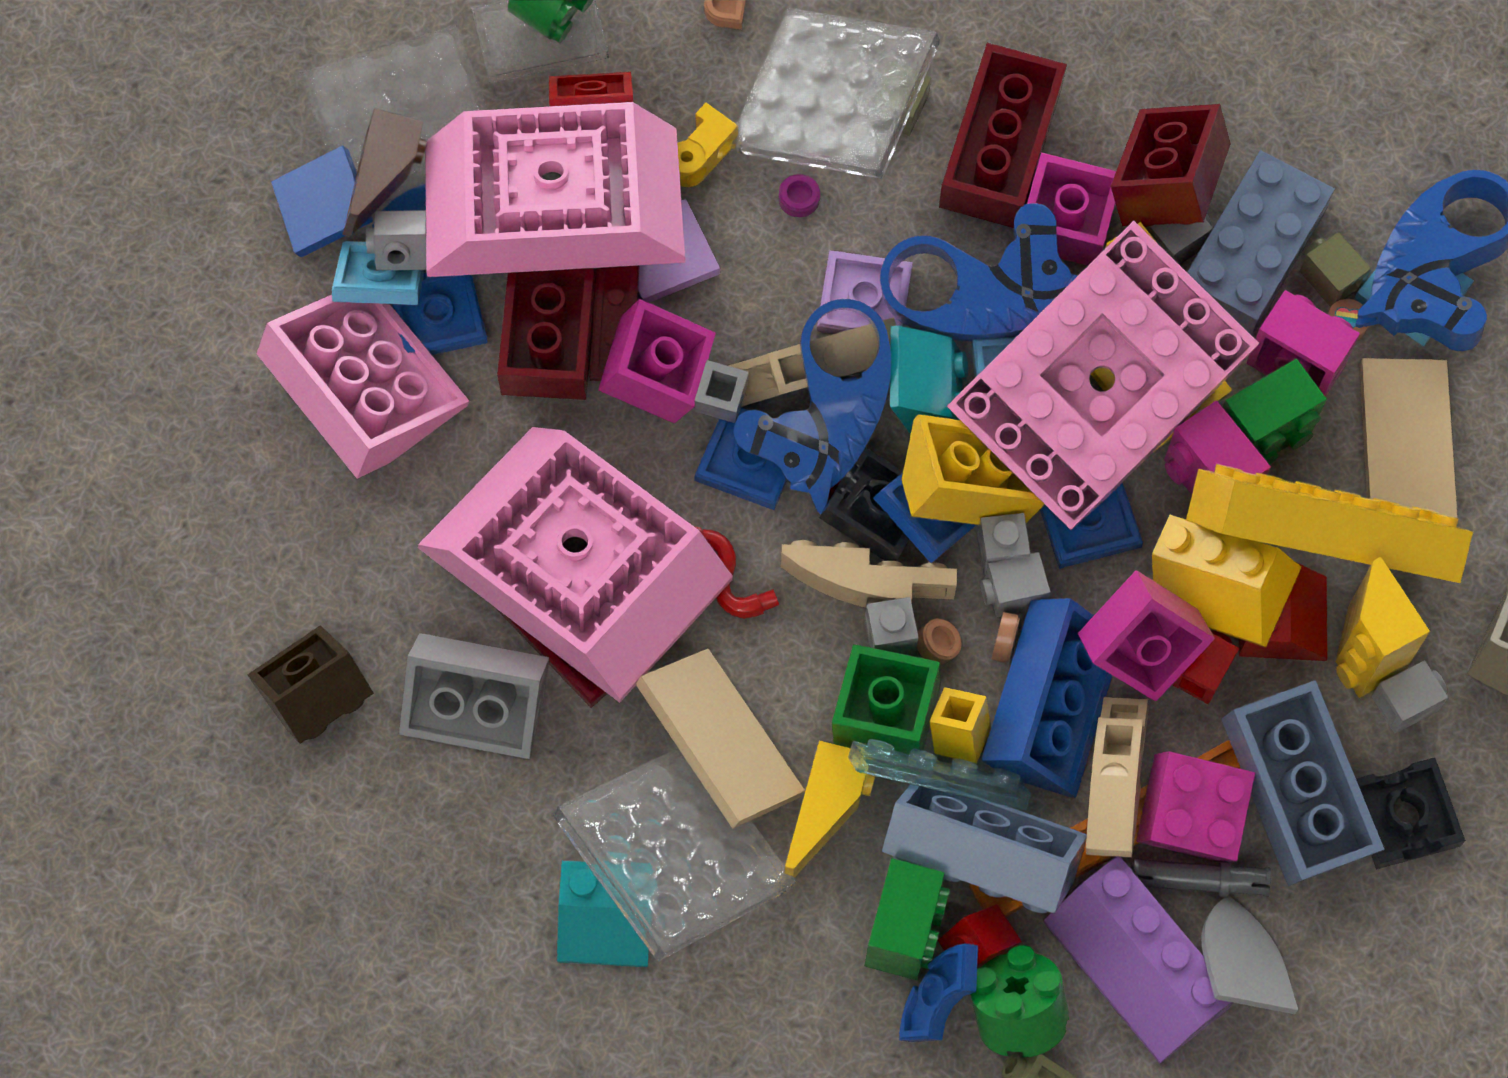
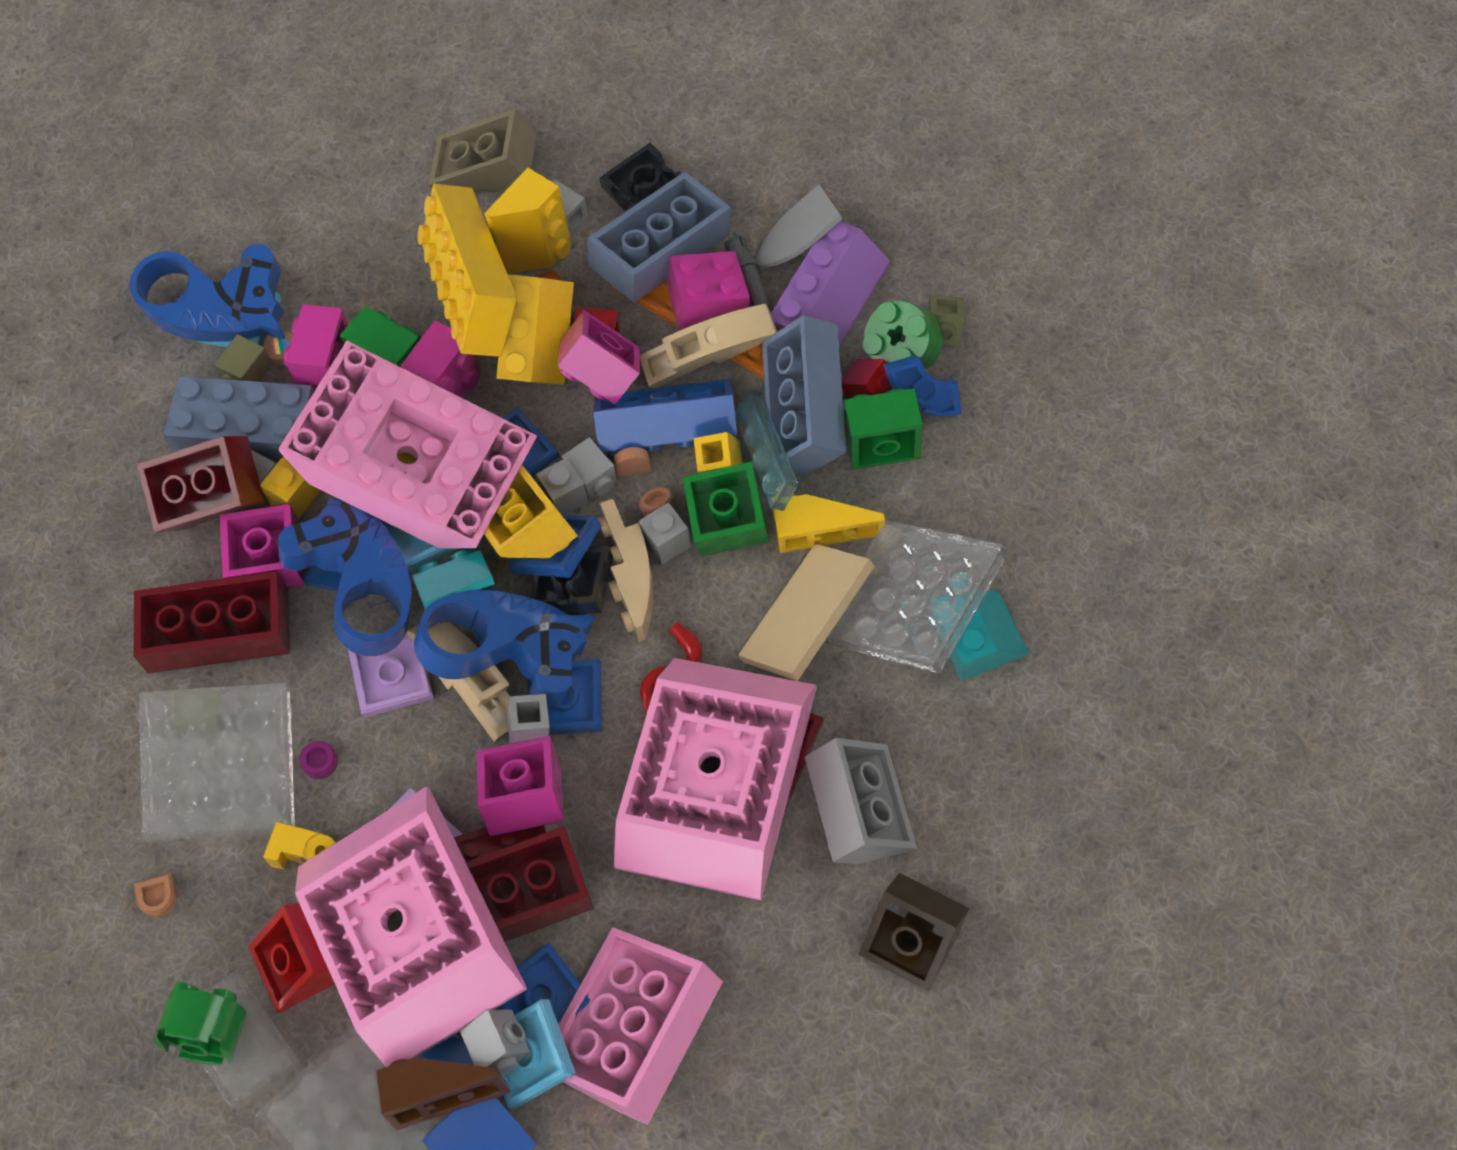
camera: 105 degrees left, 5 degrees down
(1408, 433) = (366, 276): tan tile -> none

